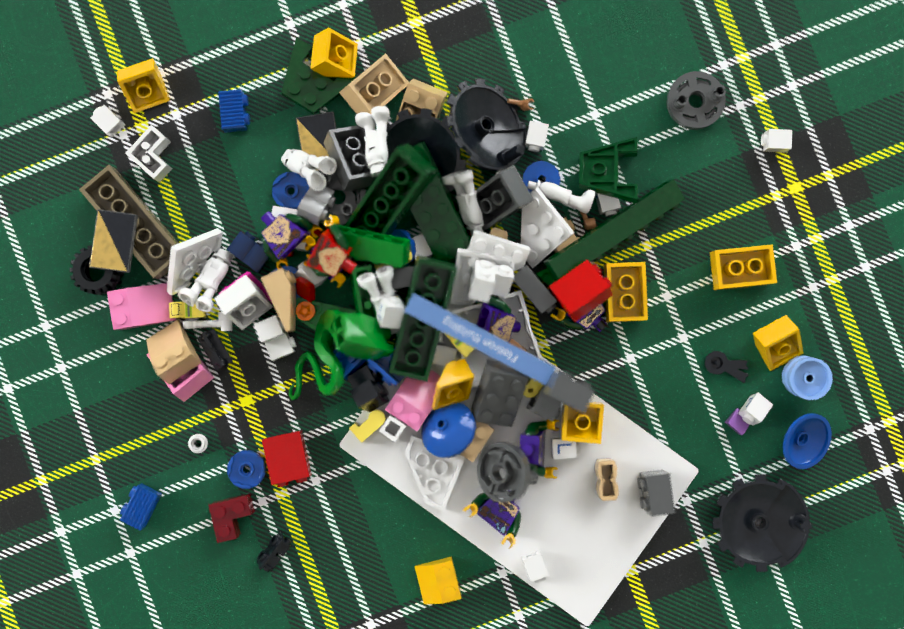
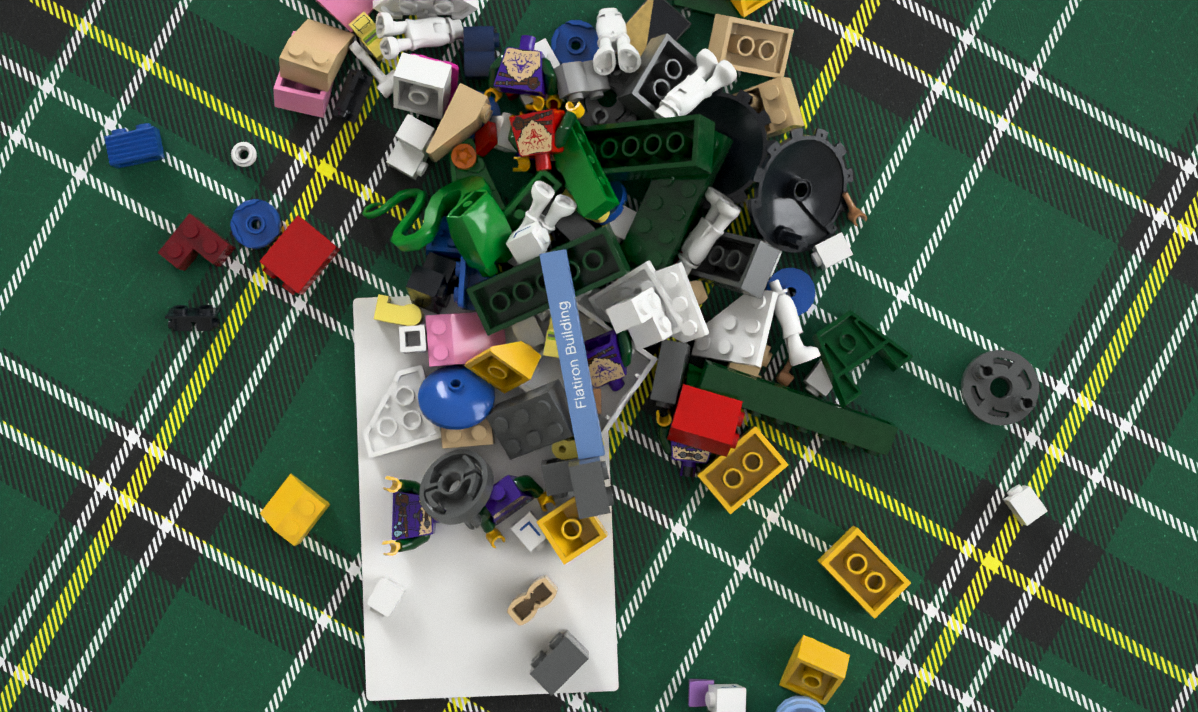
camera: 55 degrees right, 0 degrees up
(717, 363) = (744, 623): black piece -> none

